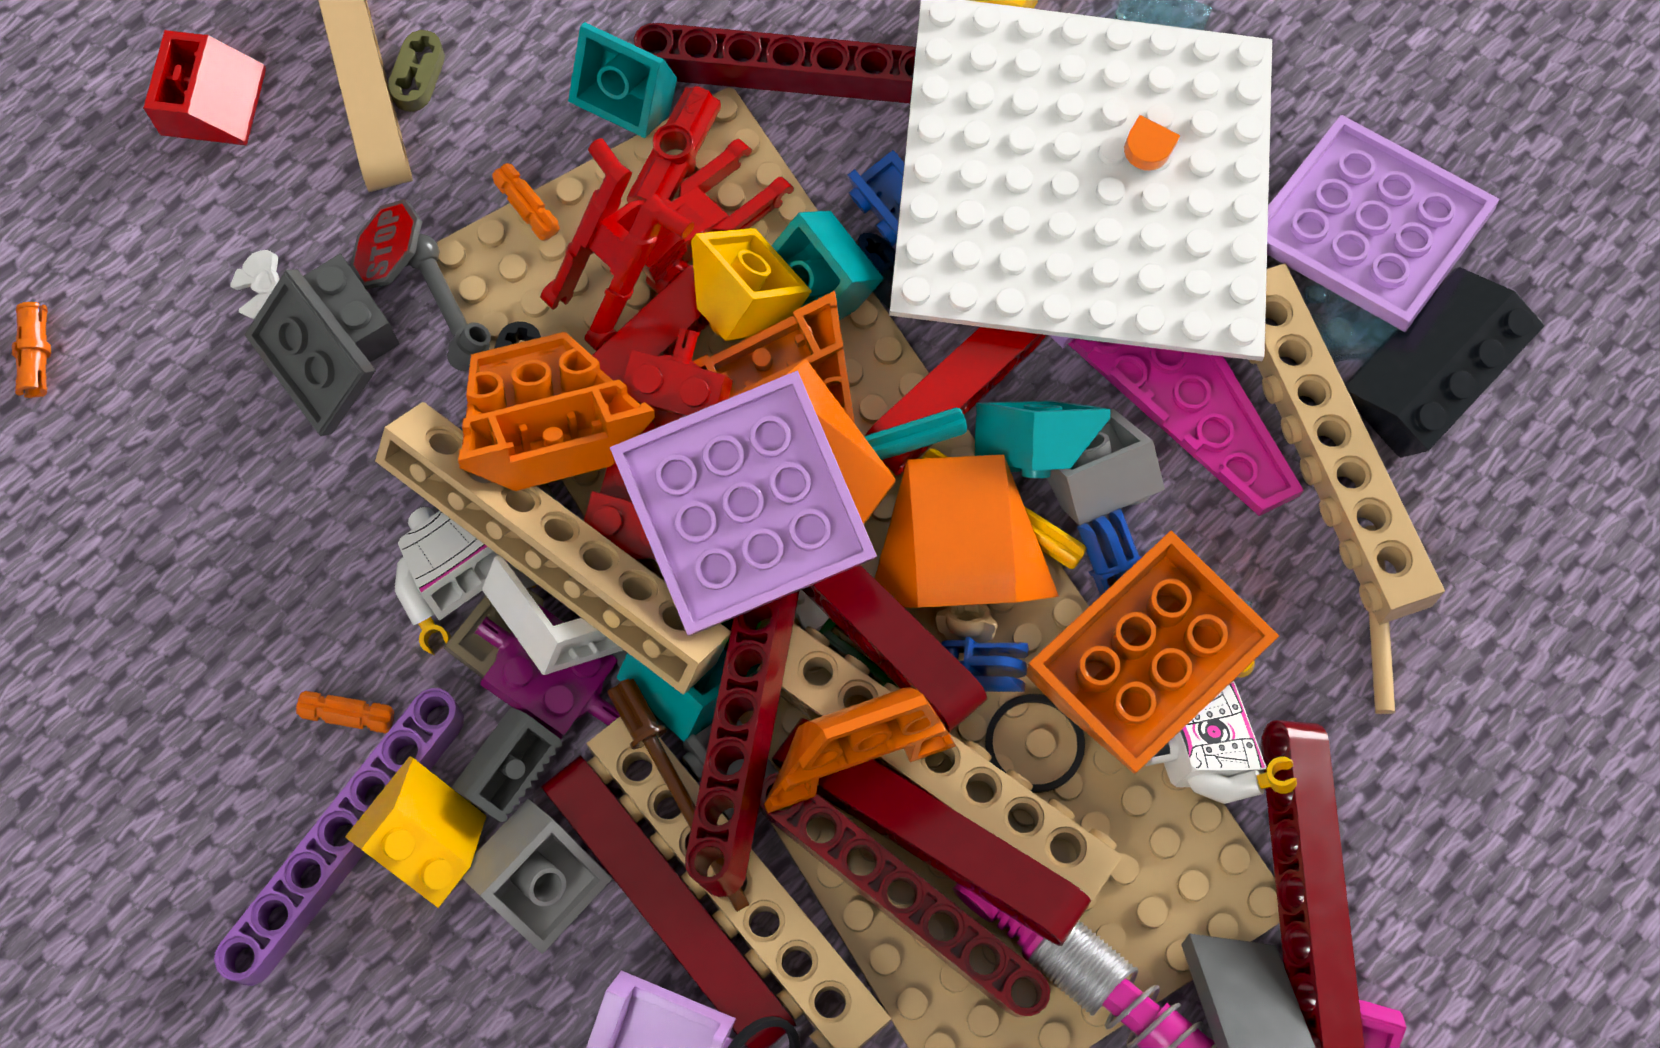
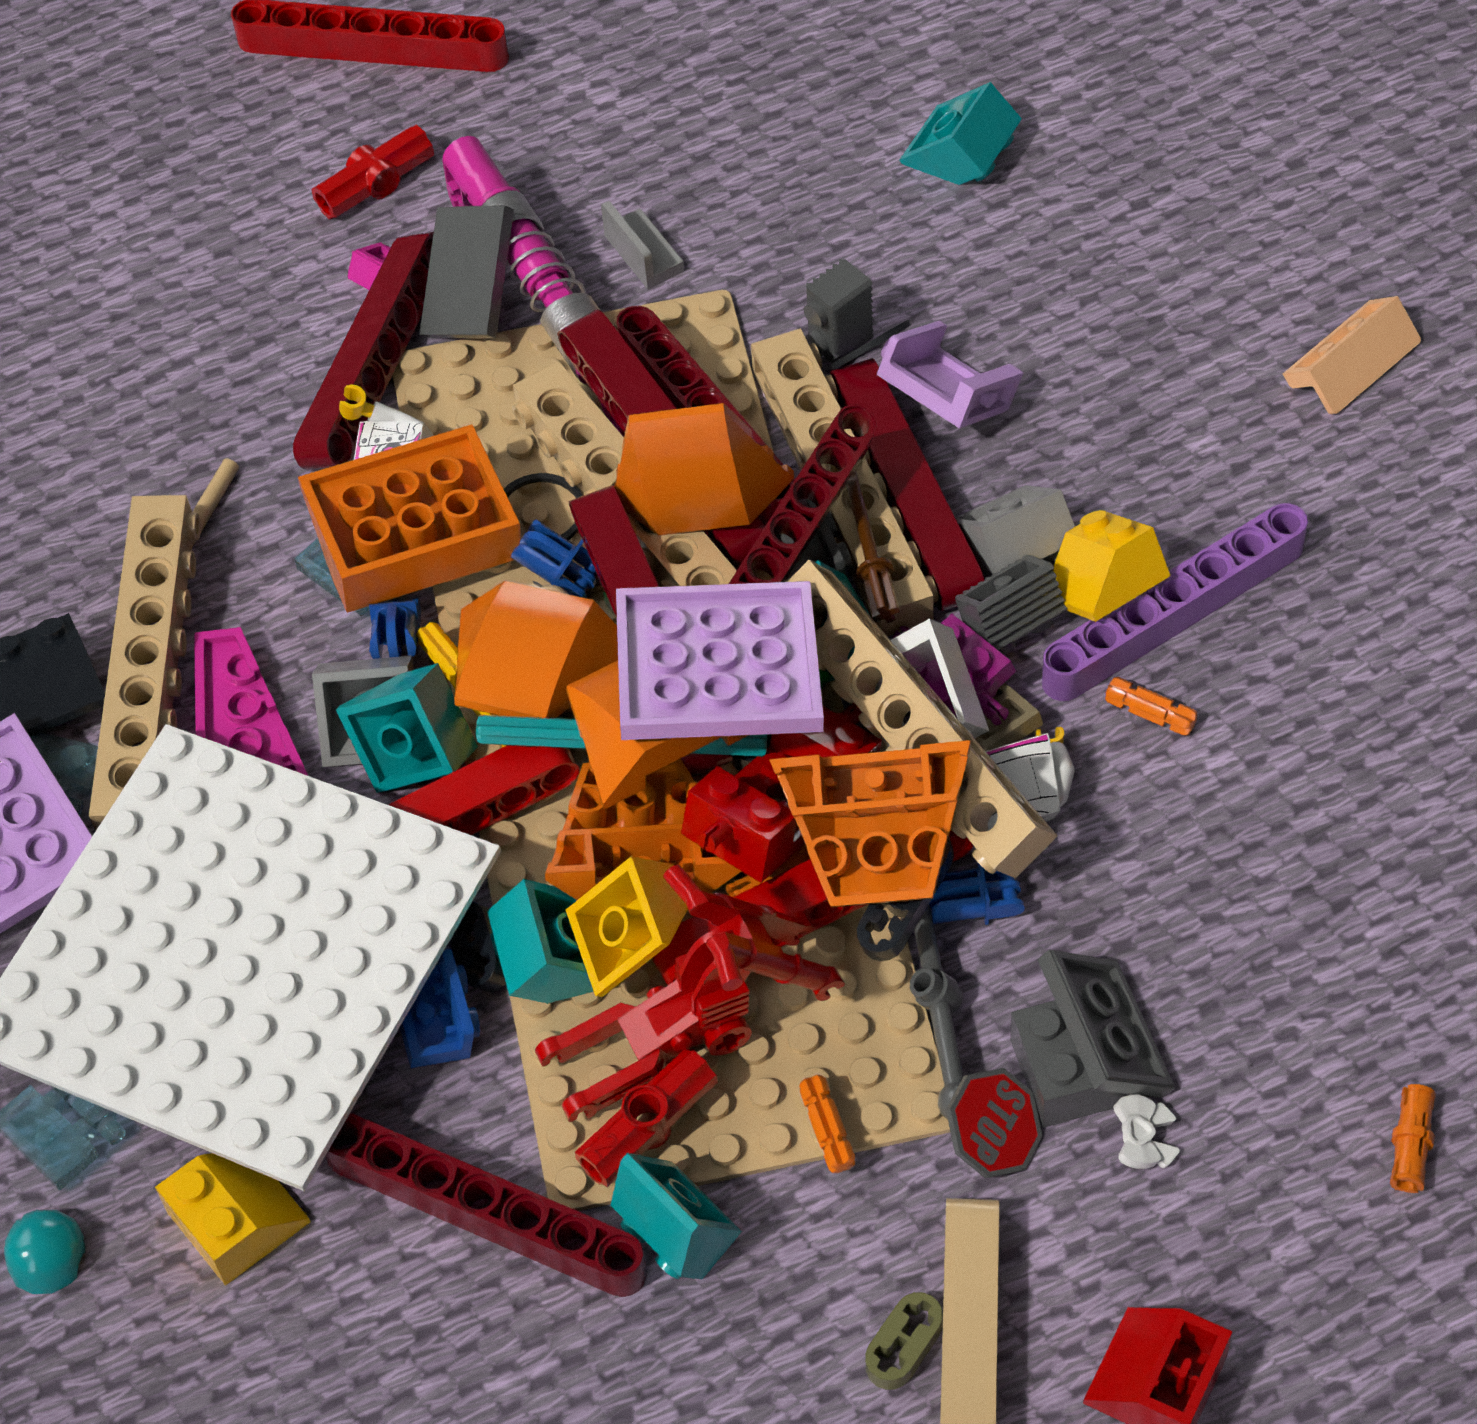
camera: 155 degrees left, 15 degrees down
(1149, 144) = (157, 936): orange tile -> none

